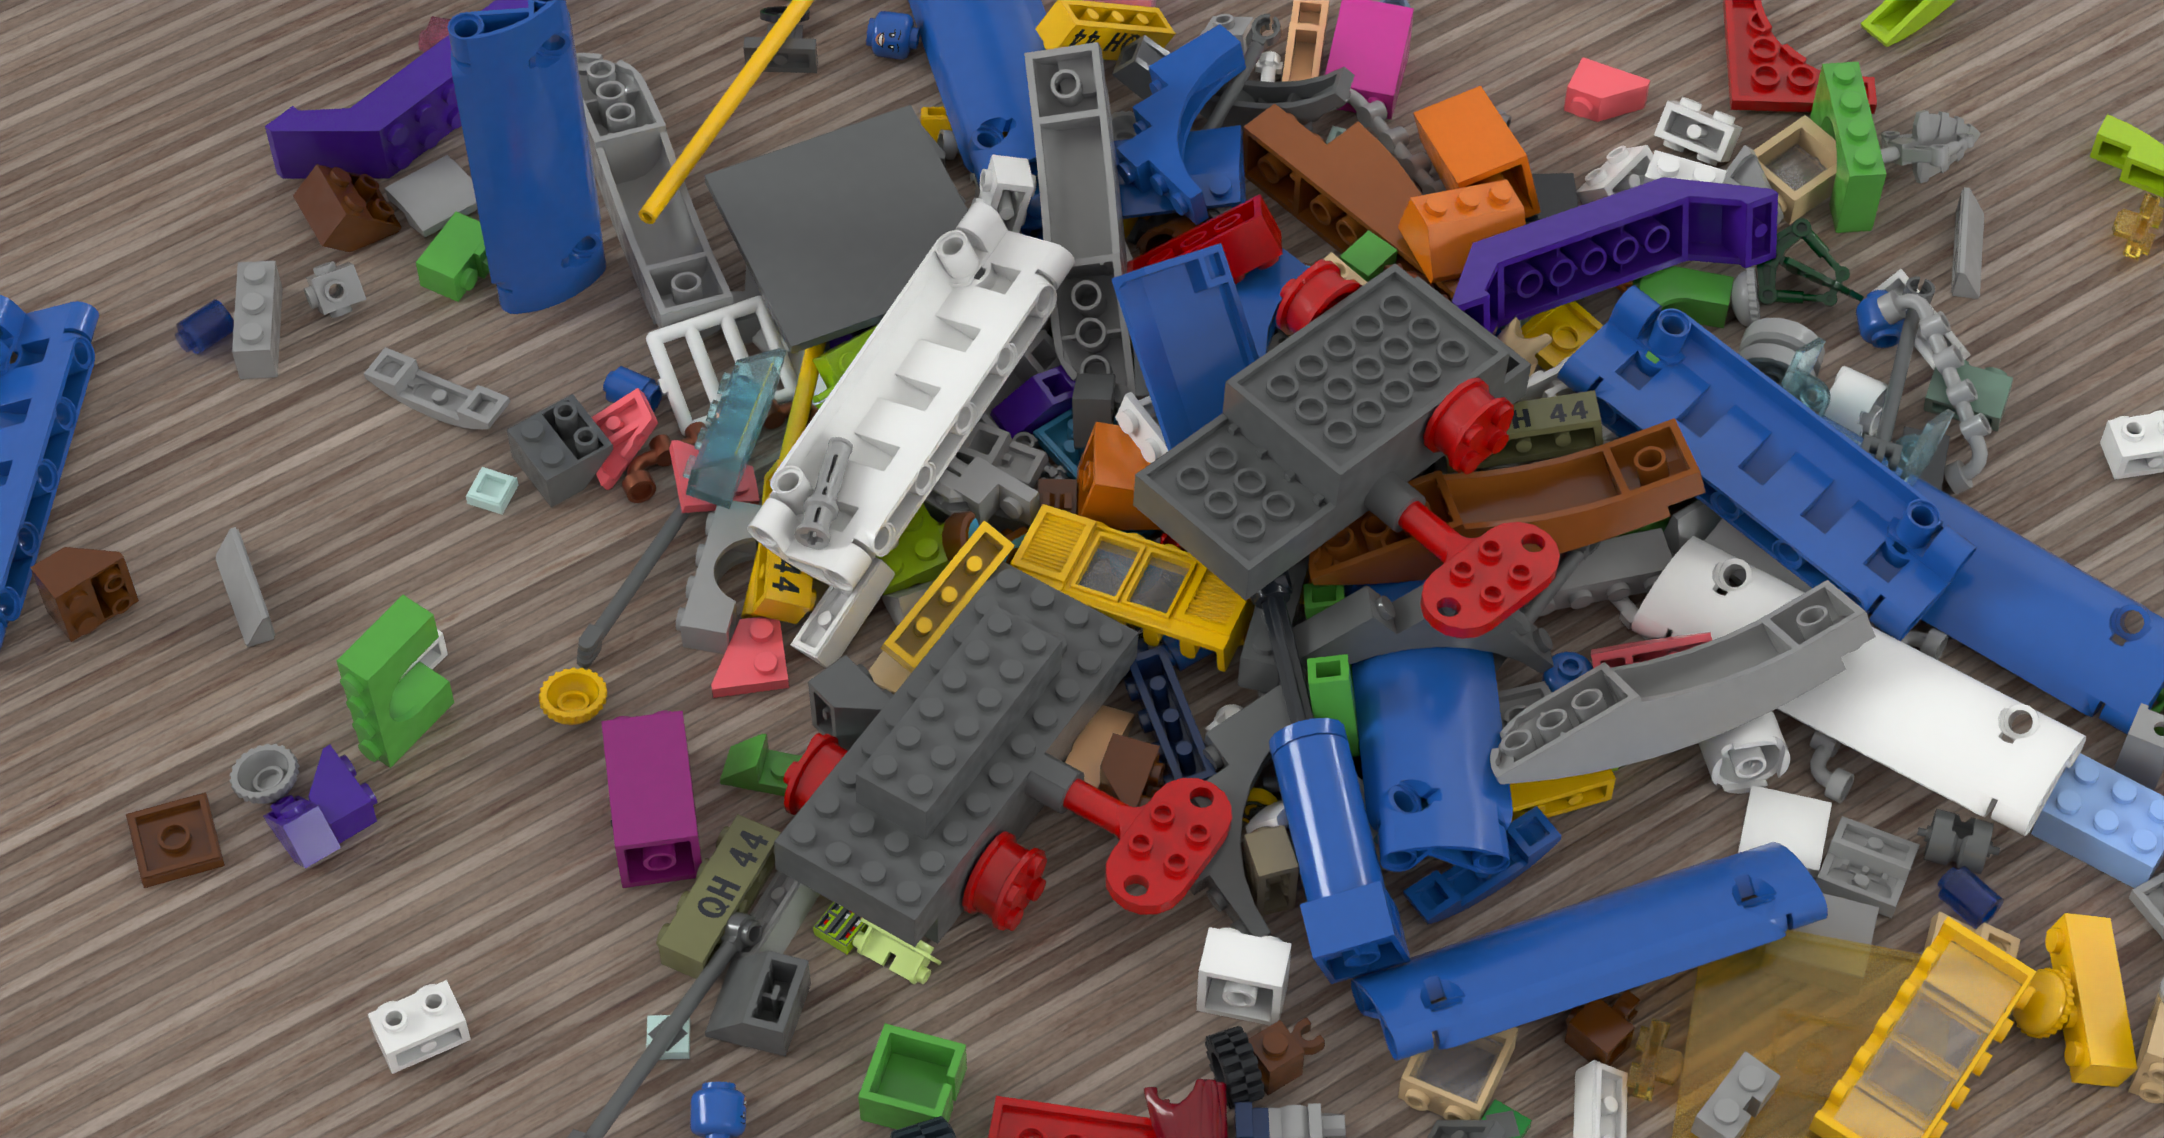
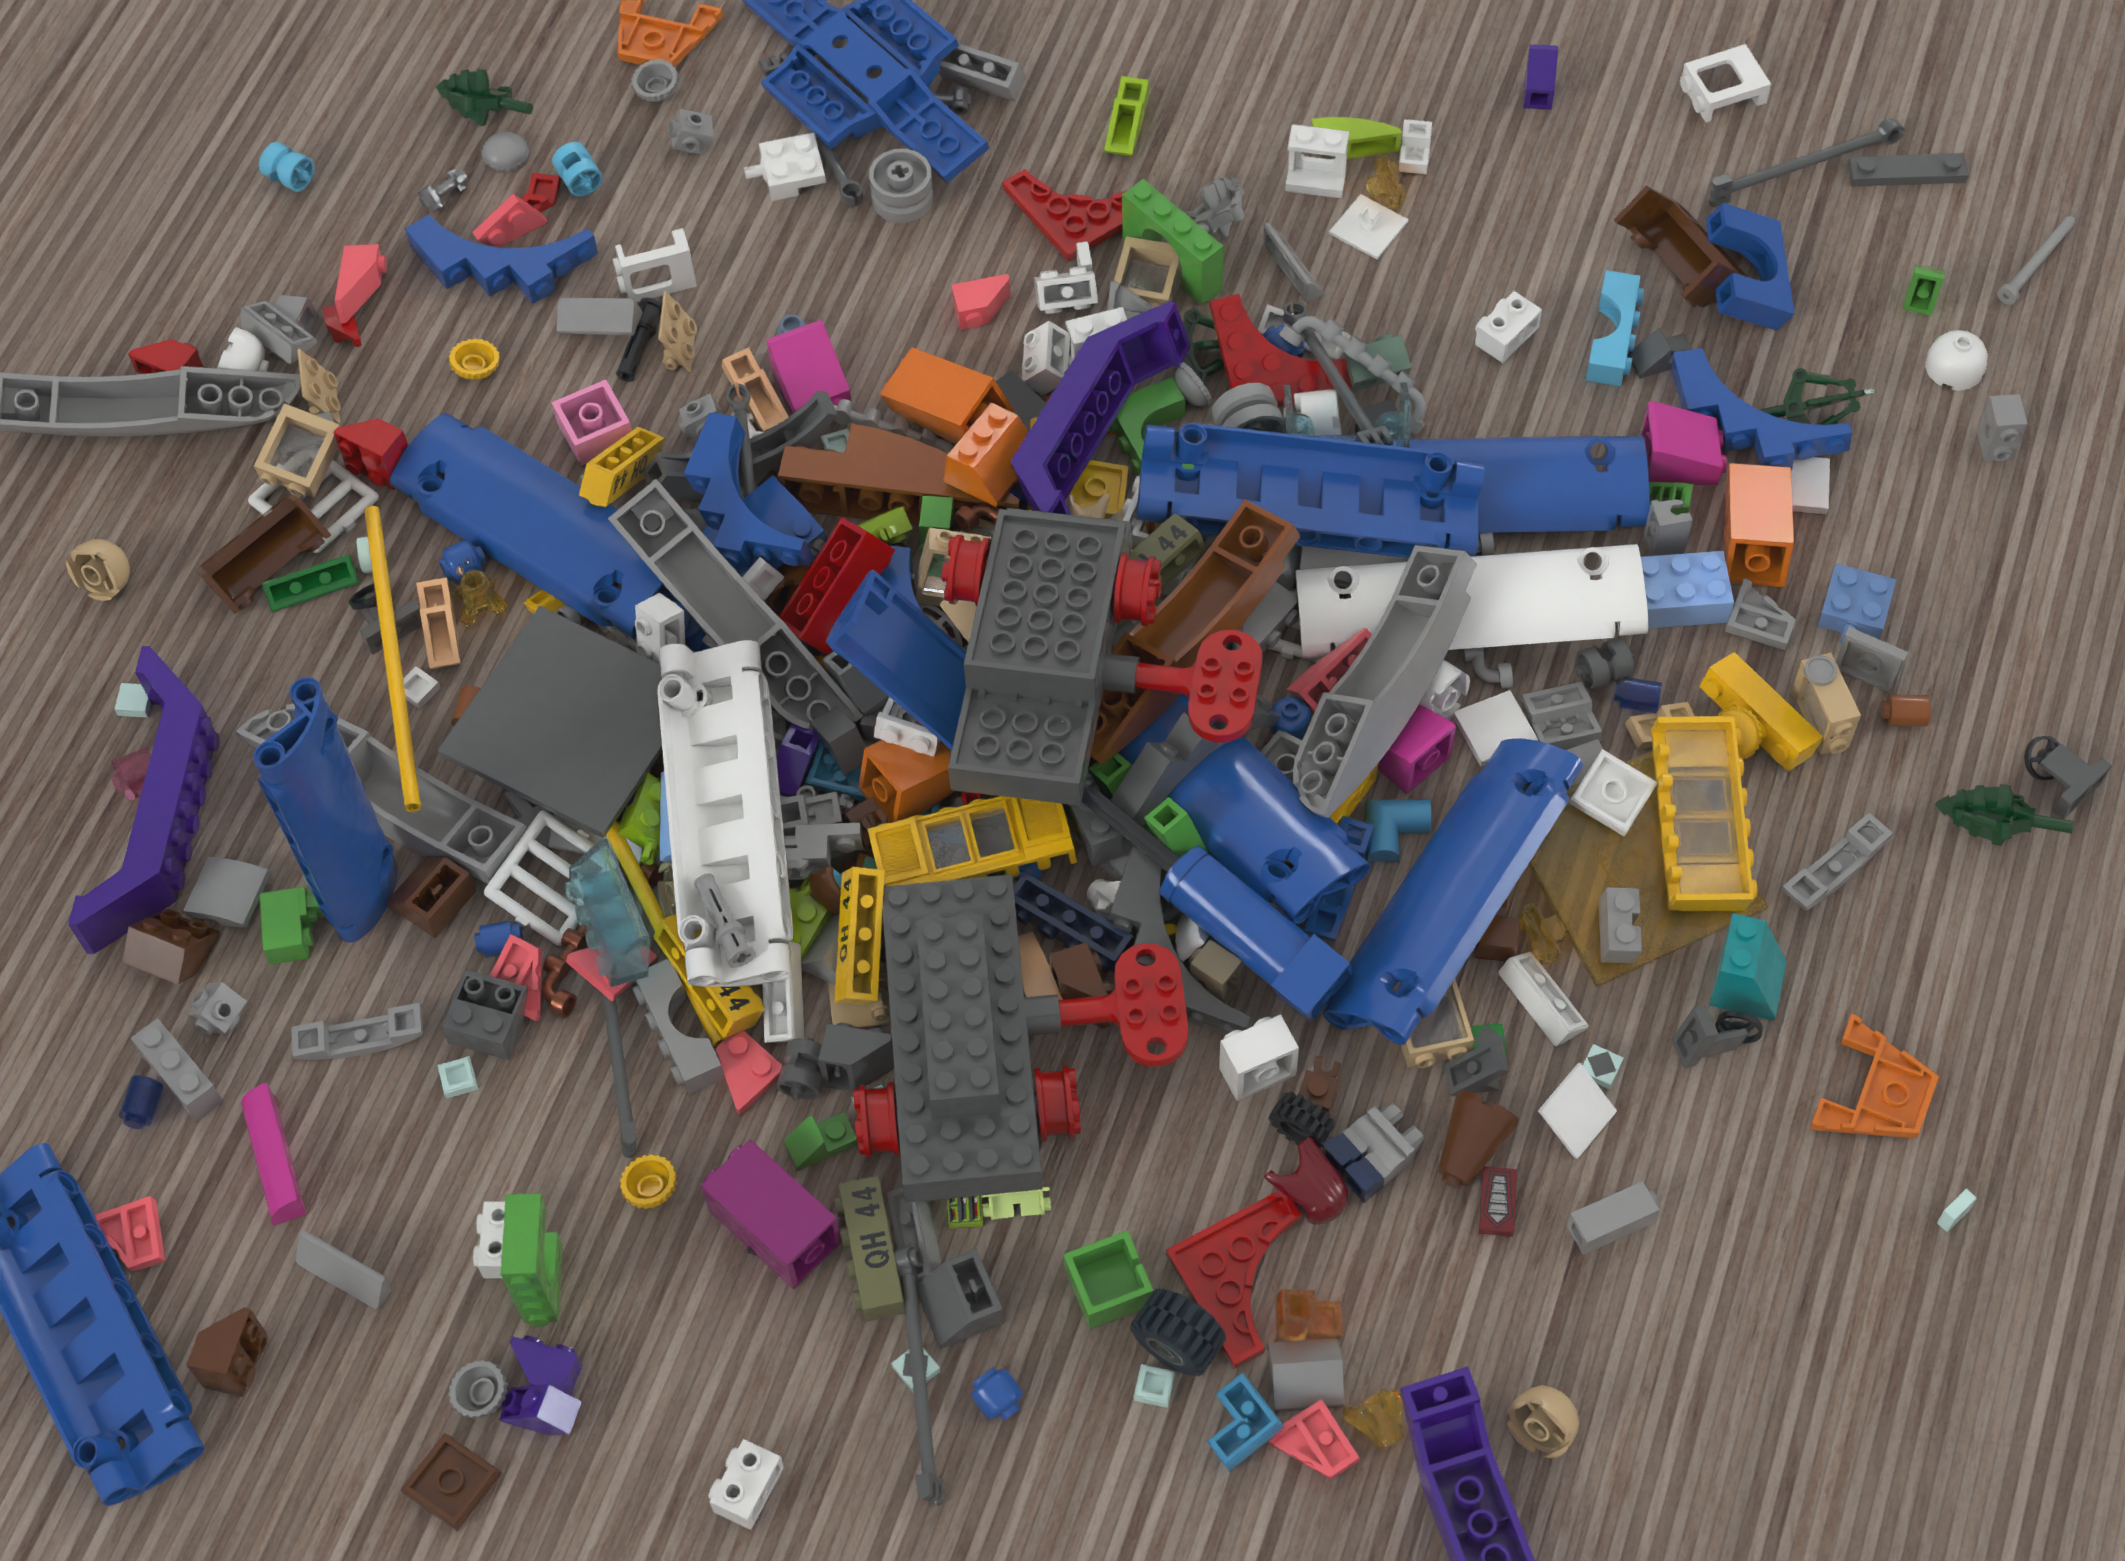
camera: 35 degrees left, 5 degrees up
(103, 437) = (134, 1233): none -> coral wing
(275, 449) = (272, 1155): none -> dark pink brick
(608, 314) = (433, 894): none -> reddish brown slope
(758, 124) = (419, 687): none -> white tile
(790, 693) = (801, 1072): none -> dark grey wheel
(826, 76) = (439, 623): none -> light nougat slope
(881, 73) = (478, 595): none -> clear yellow rock
(1144, 211) = (763, 578): none -> white tile
(1309, 240) = (889, 526): none -> lime plate
(1588, 845) = (1392, 818): none -> dark azure brick
(1673, 791) = (1418, 750): none -> dark pink slope
(1746, 114) = (1083, 255): none -> white tile
(1833, 311) = (1253, 359): none -> red plate
(1843, 967) = (1613, 792): none -> white tile
(2066, 172) = (1313, 174): none -> white window
(2086, 260) = (1368, 226): none -> white piece

